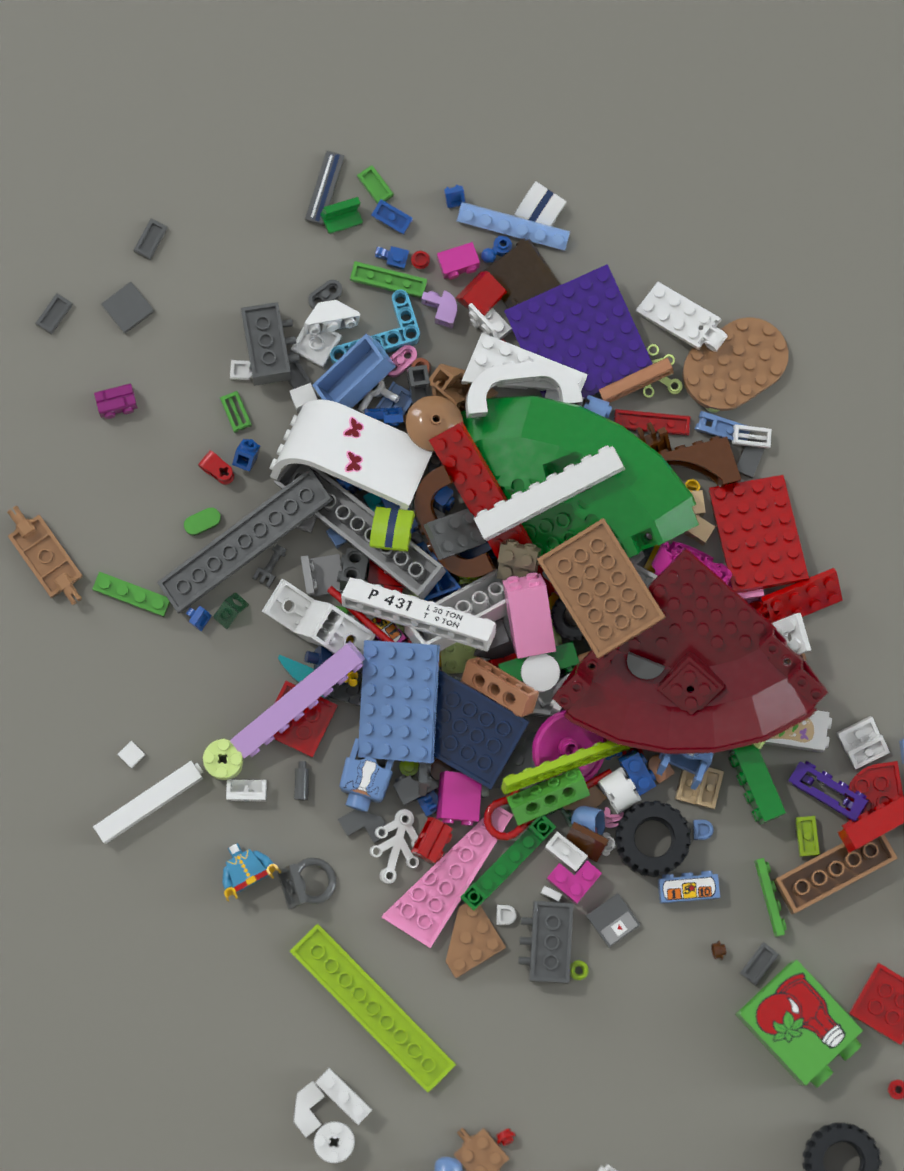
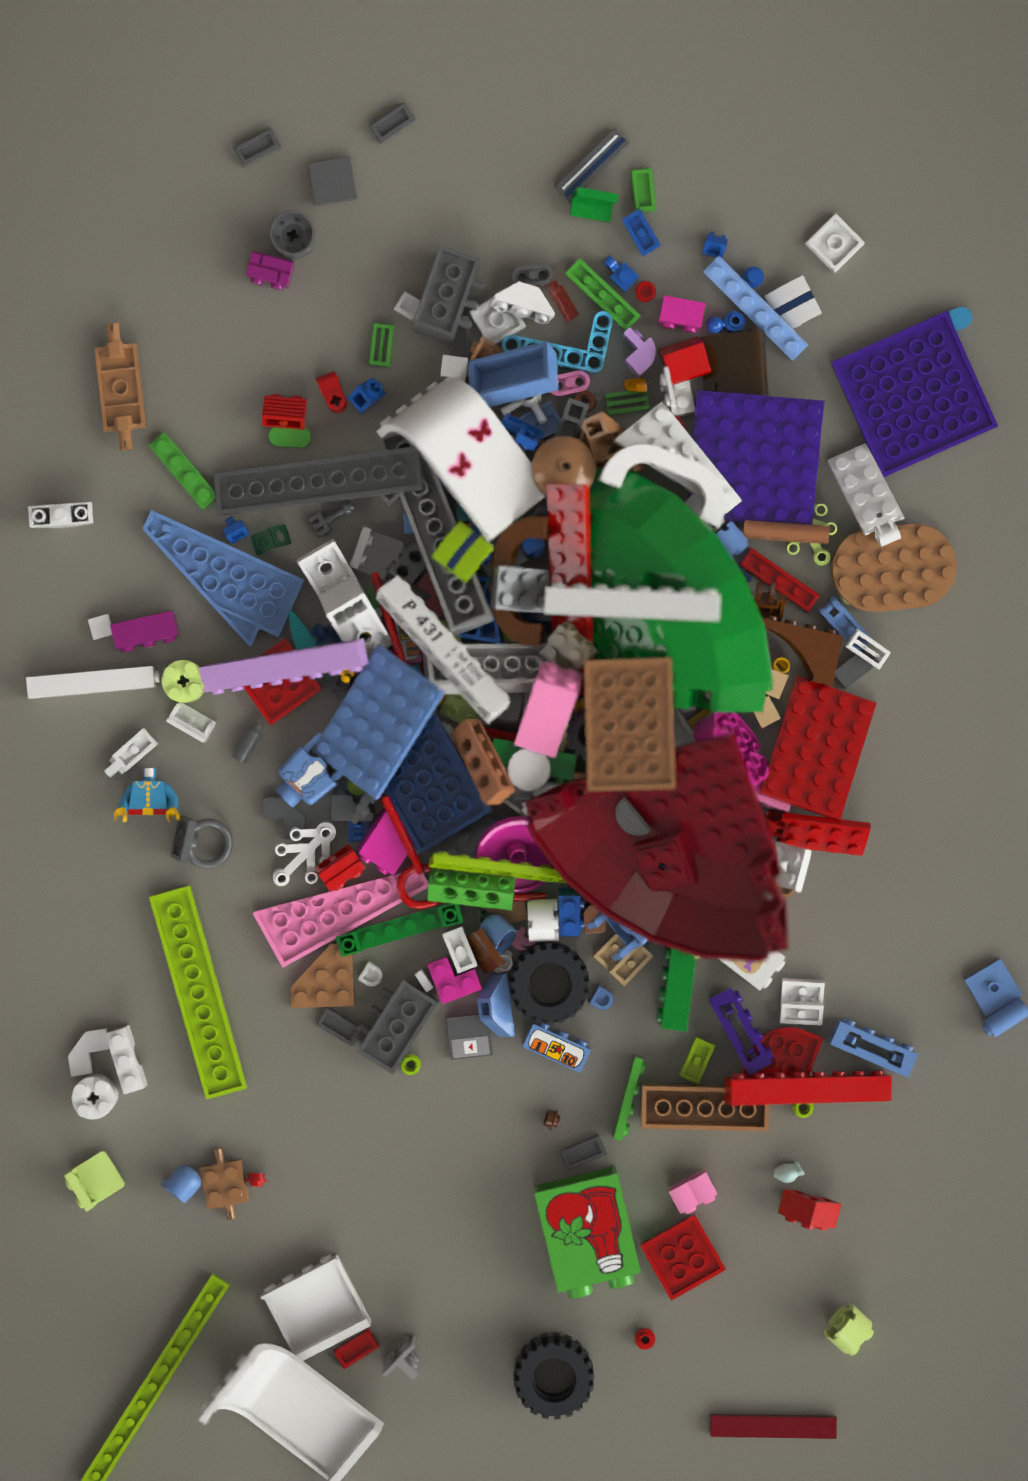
camera: 30 degrees right, 10 degrees up
(52, 681) = (60, 515): none -> white slope
(113, 354) = (285, 225): none -> dark grey wheel
(169, 737) = (145, 631): none -> magenta brick
(187, 503) = (284, 412): none -> red brick
(211, 842) = (131, 753): none -> white hinge
(223, 659) = (237, 585): none -> medium blue wing
(318, 369) = (484, 348): none -> medium nougat bracket
(360, 301) = (563, 301): none -> clear red cylinder
(453, 333) = (636, 384): none -> light orange tile
(466, 341) = (628, 401): none -> bright green tile
(468, 783) = (402, 835): none -> red bar
(498, 203) = (753, 276): none -> blue plate
(502, 971) = (338, 1026): none -> dark grey tile
(546, 145) = (834, 243): none -> white tile
(621, 882) = (495, 1005): none -> medium blue slope
(673, 225) = (914, 394): none -> dark purple plate
(674, 149) = (960, 317): none -> dark azure tile
(866, 944) = (692, 1191): none -> bright pink brick

